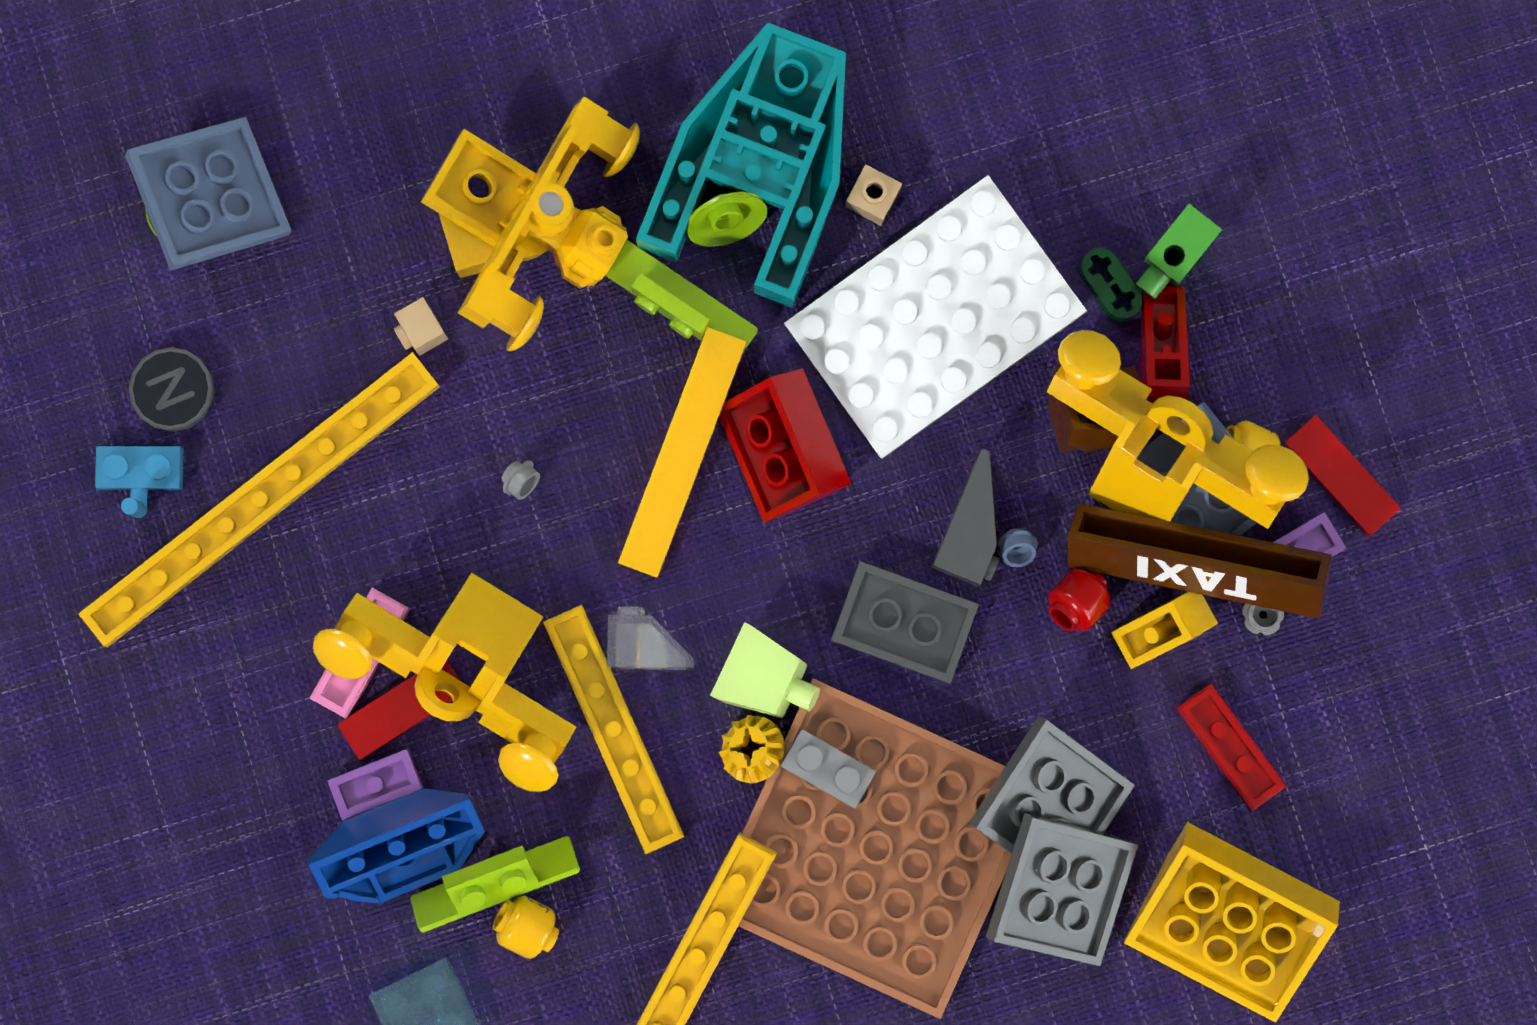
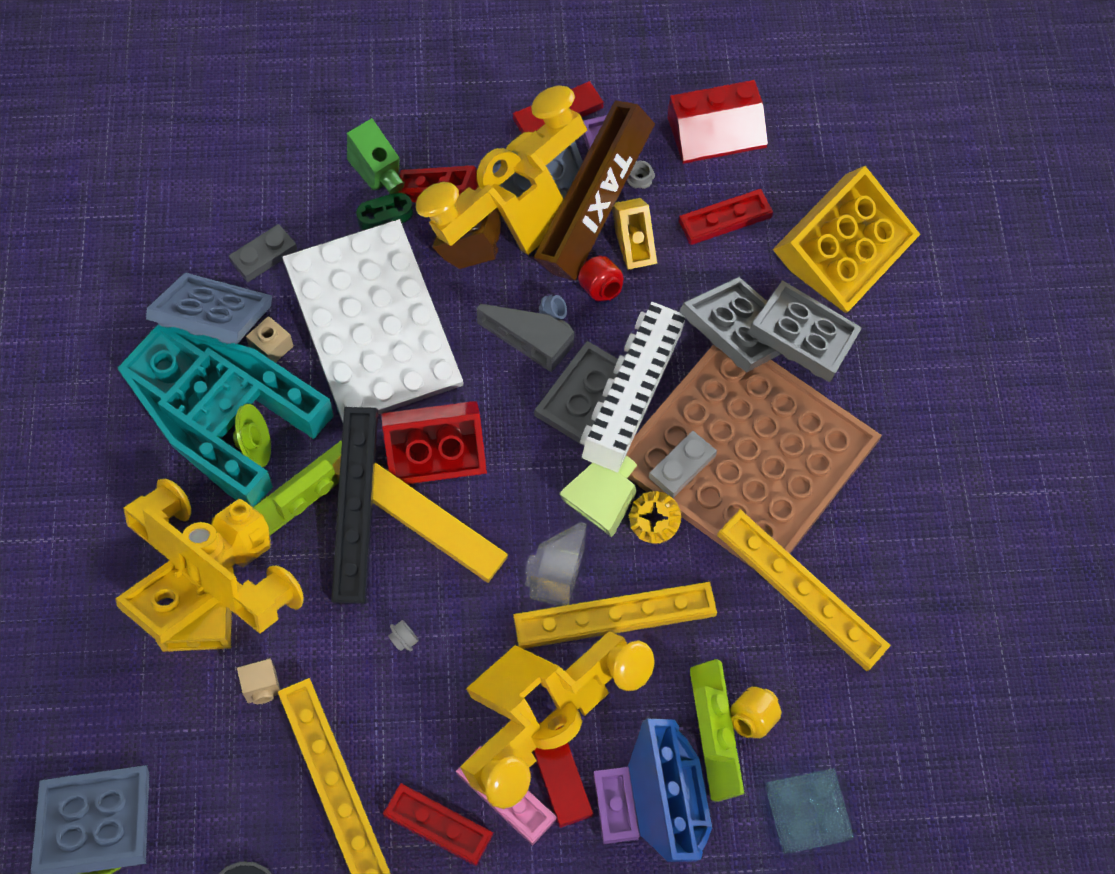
camera: 75 degrees left, 20 degrees down
(307, 583) = (438, 824): none -> red tile
(668, 372) = (355, 506): none -> black tile
(889, 106) = (209, 308): none -> sand blue plate
(916, 682) = (633, 387): none -> white brick
(1005, 144) = (262, 253): none -> dark grey plate
(1378, 704) = (718, 121): none -> slope

